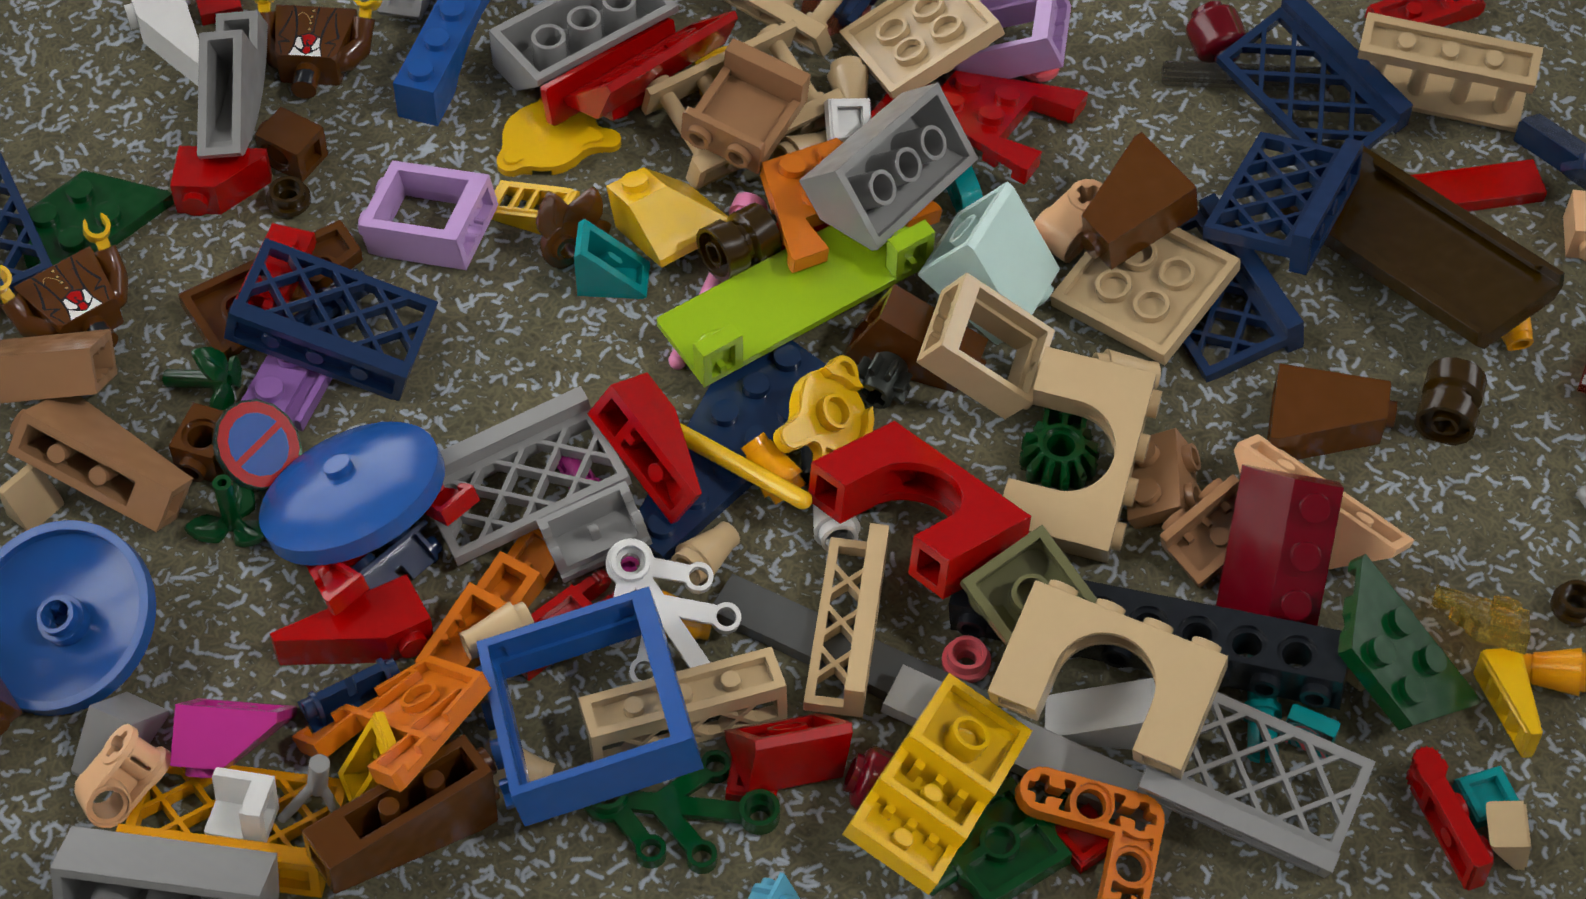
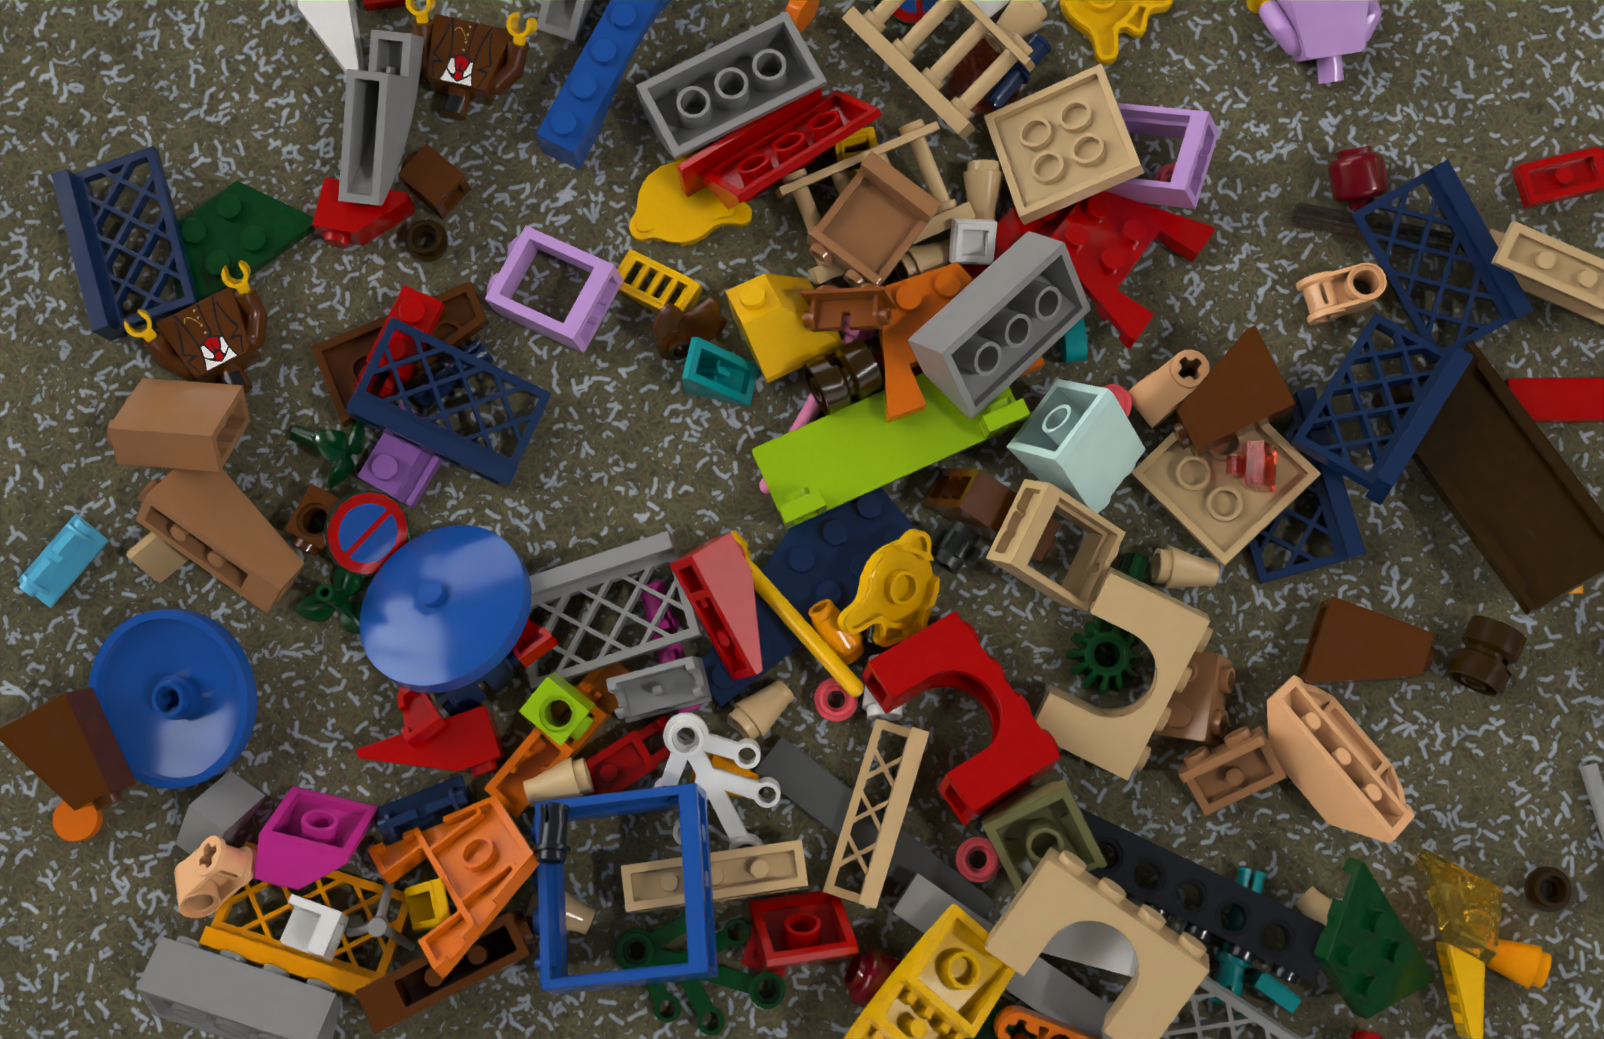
camera: 10 degrees right, 25 degrees up
(479, 544) = (538, 709): none -> lime brick
(502, 664) = (553, 834): none -> black pin
(741, 168) = (867, 306): none -> dark orange hinge
(788, 524) = (825, 710): none -> coral plate
(1171, 256) = (1256, 467): none -> clear red tile
(1225, 124) = (1334, 295): none -> light nougat piece
(1280, 544) = (1289, 813): dark red slope -> none

